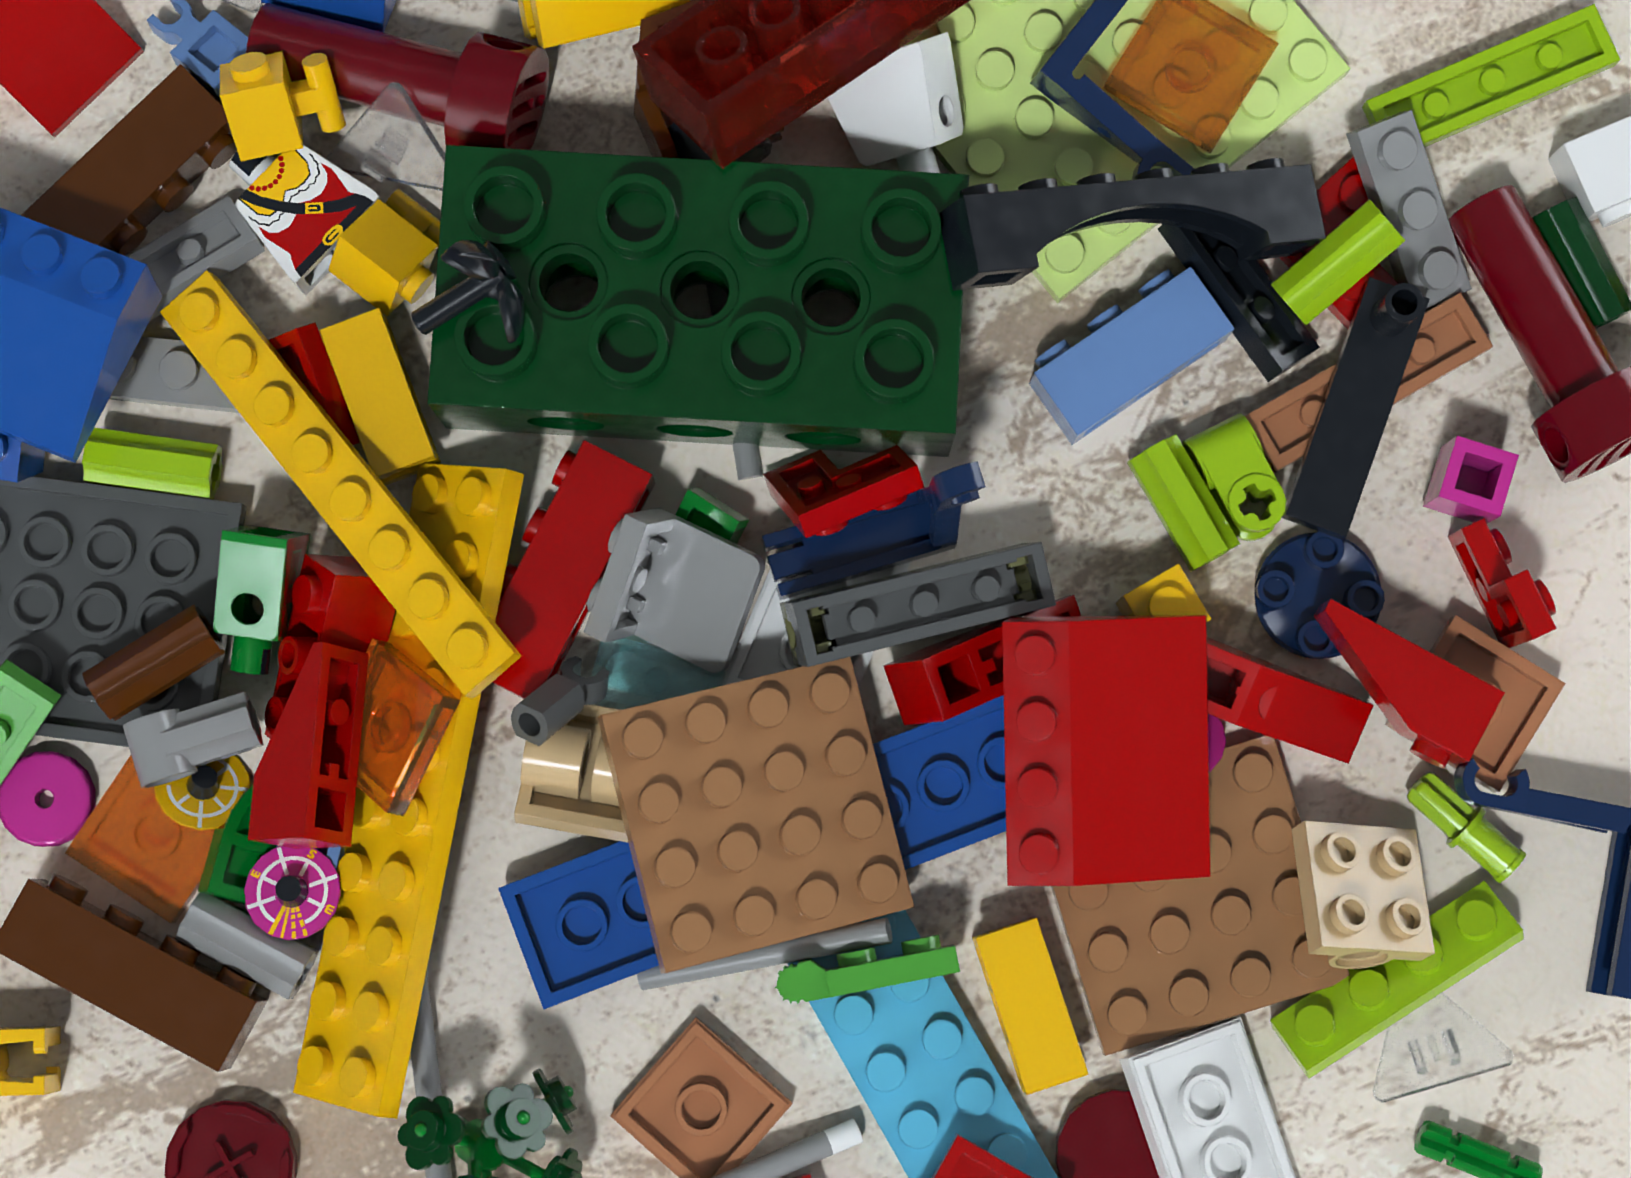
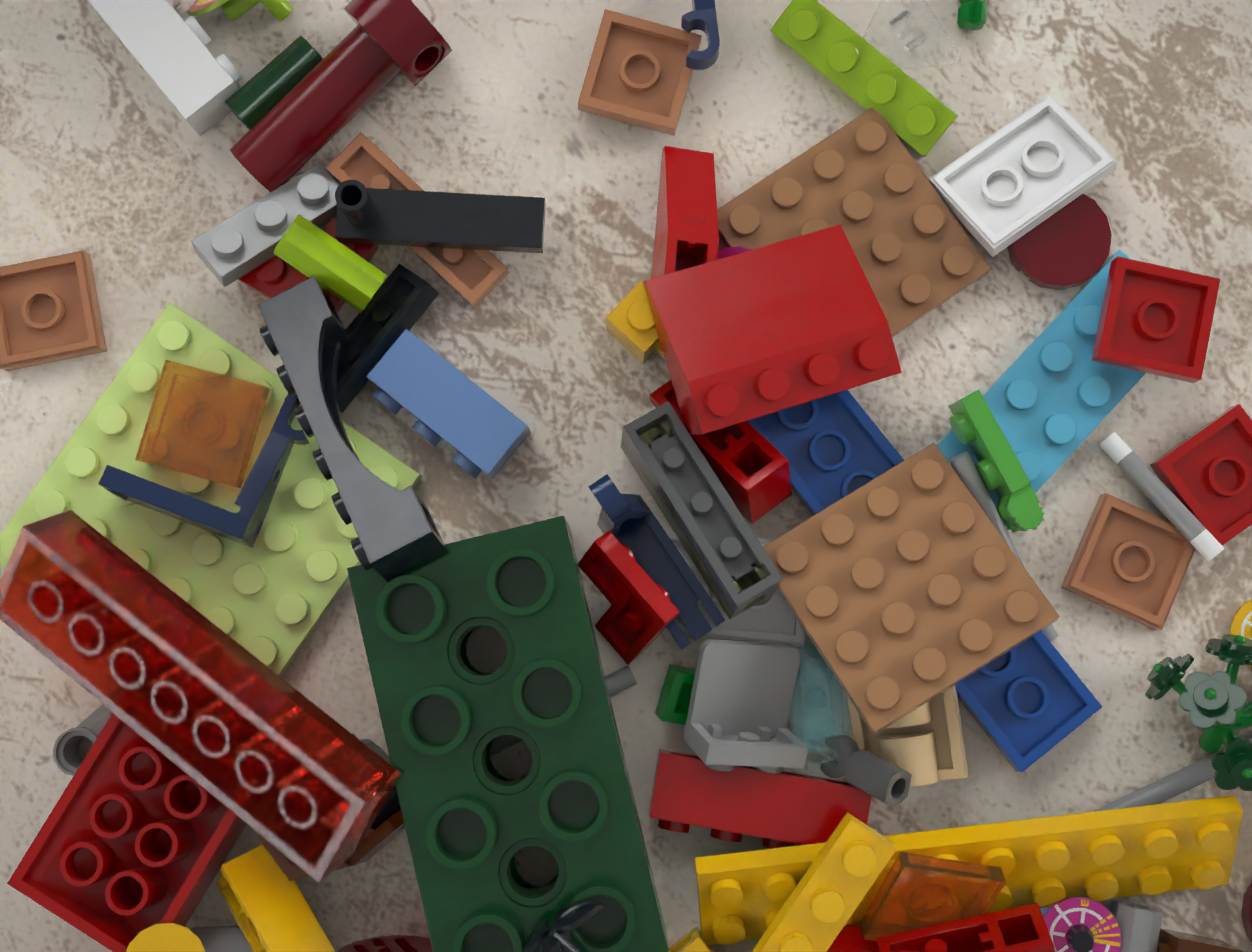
camera: 105 degrees left, 0 degrees up
(903, 106) = (302, 640): white torso -> none
(1030, 1006) = (974, 335): yellow piece -> none
(1183, 502) = (552, 331): lime axle -> none
(1233, 467) = (514, 300): lime piece -> none
(1305, 575) = (592, 211): dark blue dish -> none
(1362, 893) = (813, 110): tan plate -> none
(1417, 691) = (649, 110): red slope -> none
(1465, 826) = (734, 54): lime axle -> none
(1470, 480) = (471, 118): dark pink brick -> none
(1502, 77) = (144, 185): lime plate -> none
(1513, 604) = (560, 58): red plate -> none

